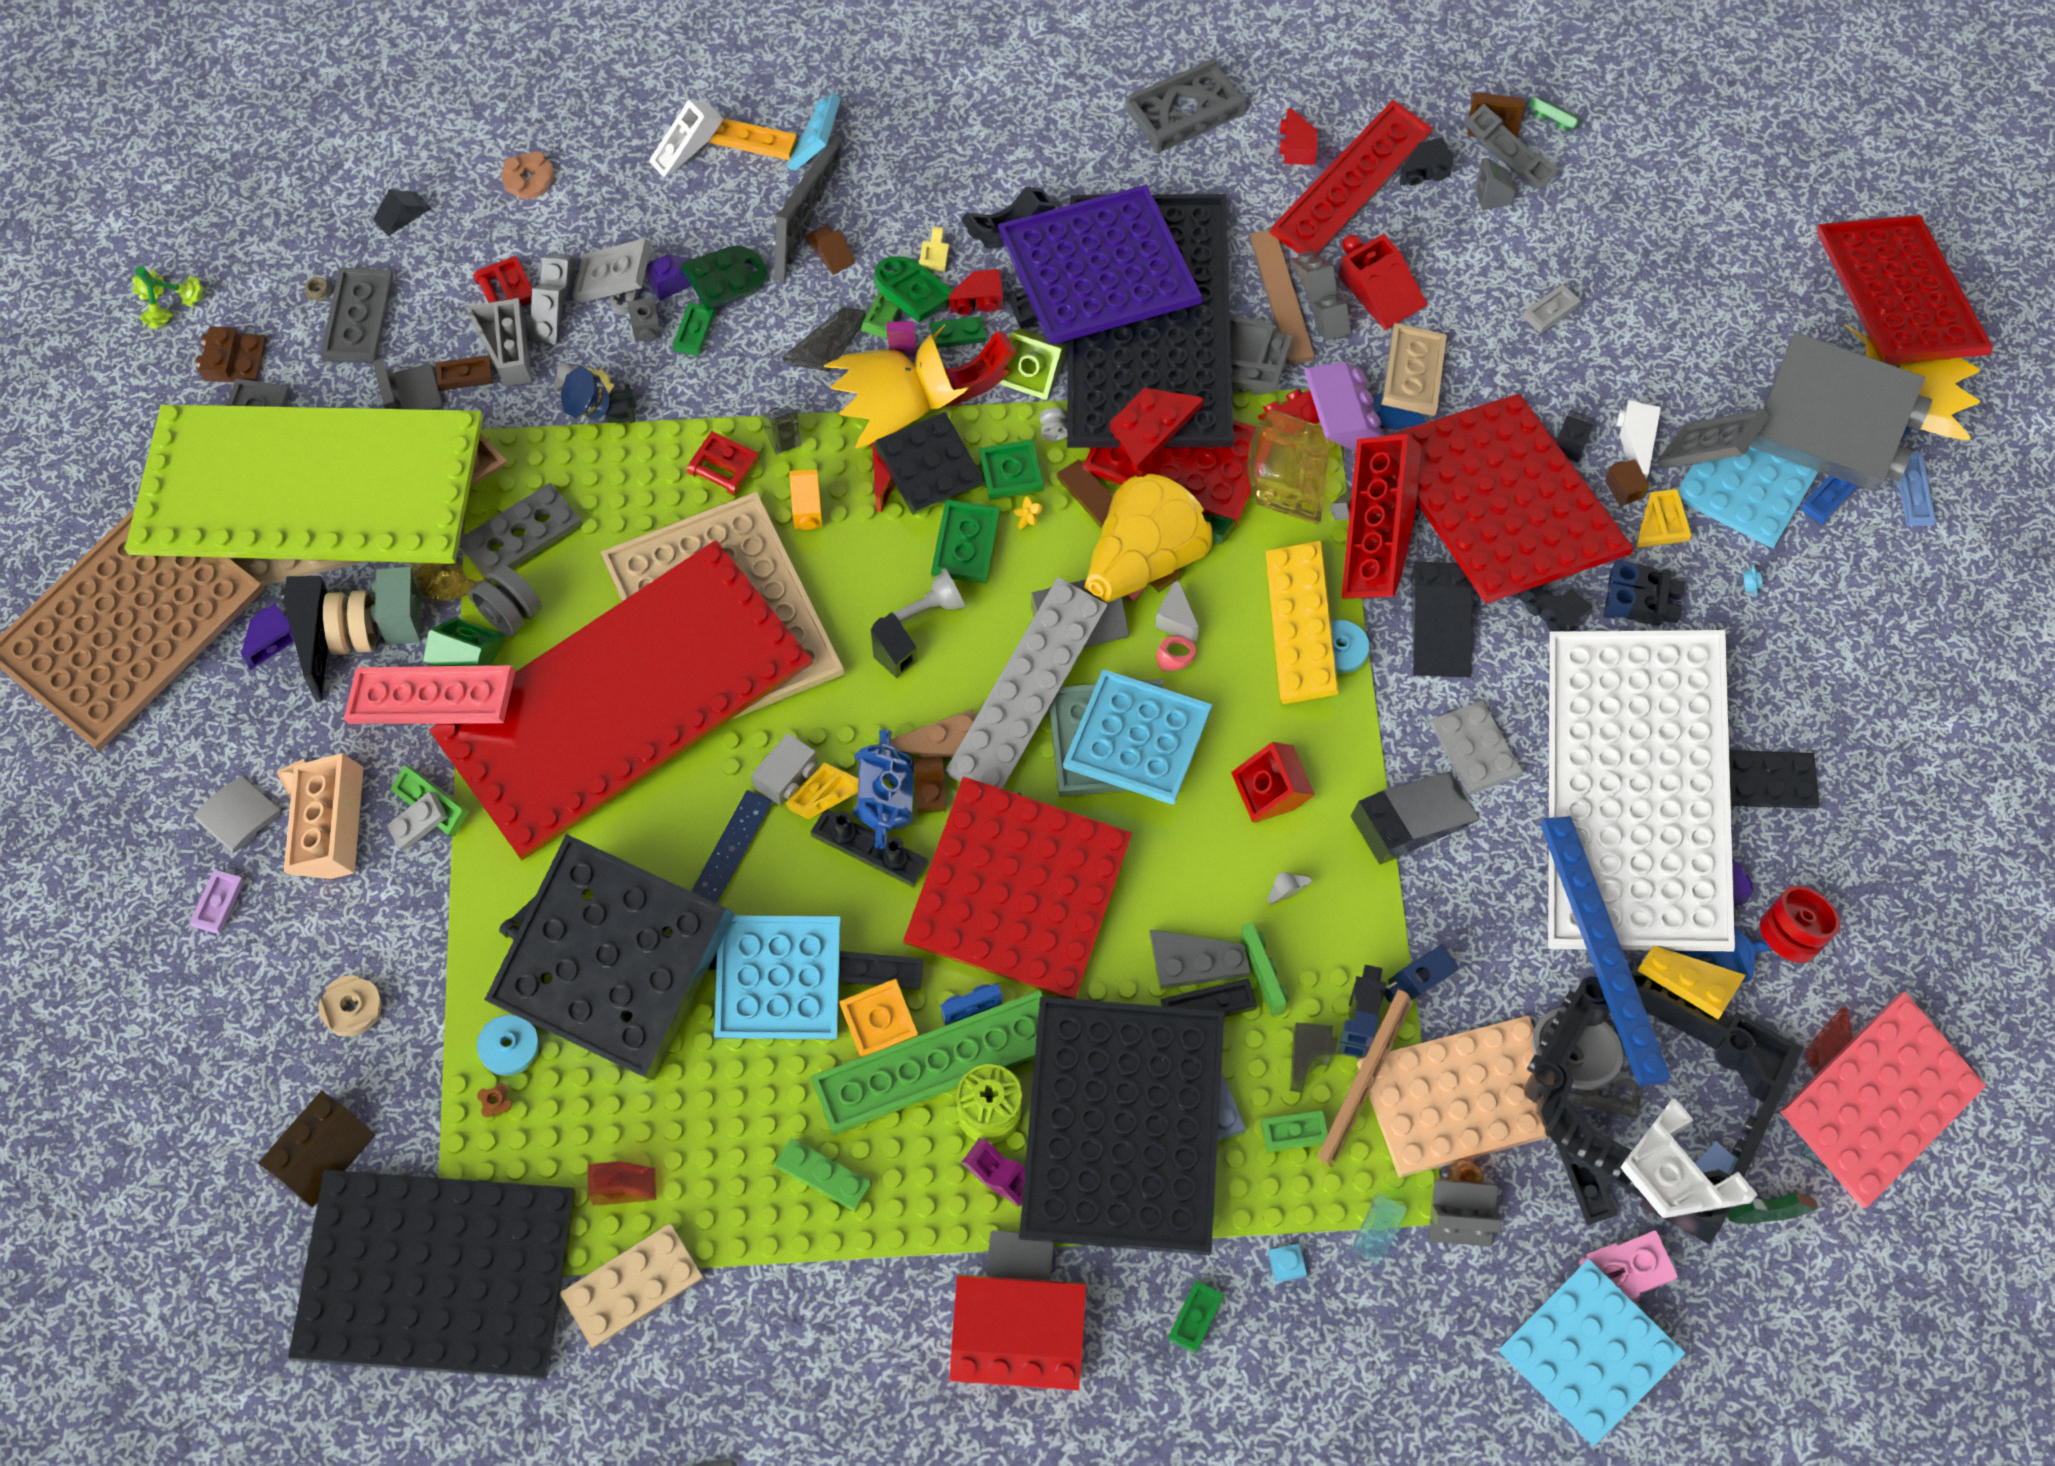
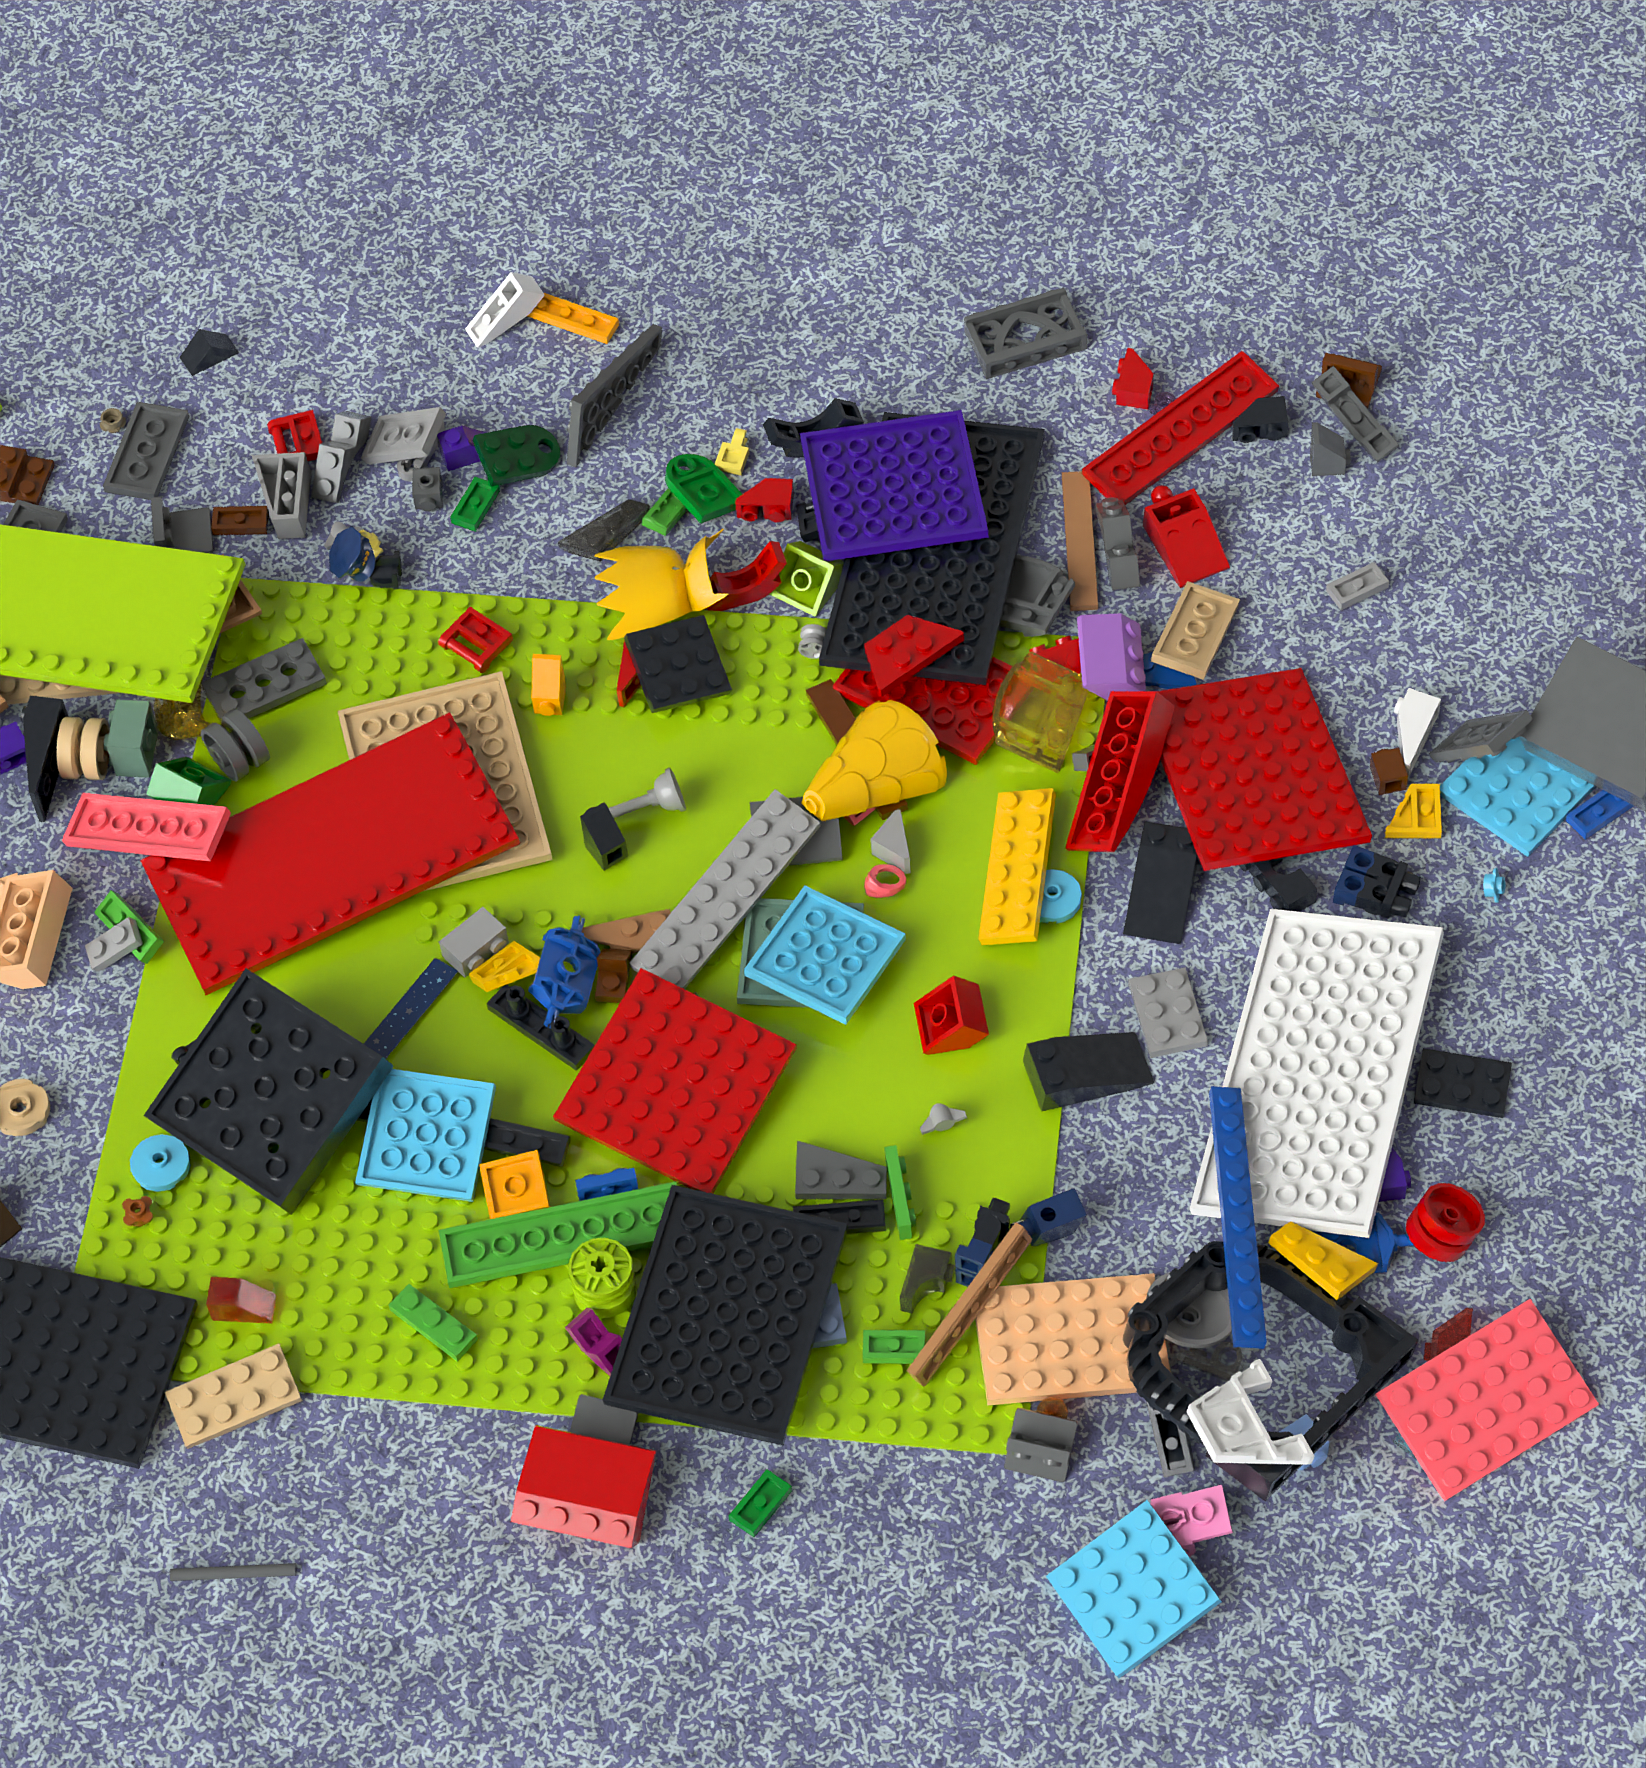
camera: 15 degrees right, 5 degrees down
(534, 163) = (331, 320): nougat plate -> none
(782, 428) = (540, 613): clear smoke slope -> none
(816, 132) = (638, 318): medium azure wing -> none
(830, 248) = (629, 439): reddish brown slope -> none
(902, 337) = (675, 535): magenta tile -> none
(959, 331) = (740, 538): green plate -> none
(966, 541) = (700, 745): green plate -> none
(1010, 469) = (760, 680): green plate -> none
(1028, 513) = (768, 725): yellow plant -> none
(1221, 527) = (957, 763): dark green plate -> none
(1287, 1263) = (860, 1468): medium azure plate -> none
(1378, 1228) = (954, 1447): clear light blue plate -> none
(1546, 109) = (1406, 379): plate -> none
(1575, 434) = (1347, 716): black slope -> none
(1772, 1209) = (1348, 1487): dark green tile -> none

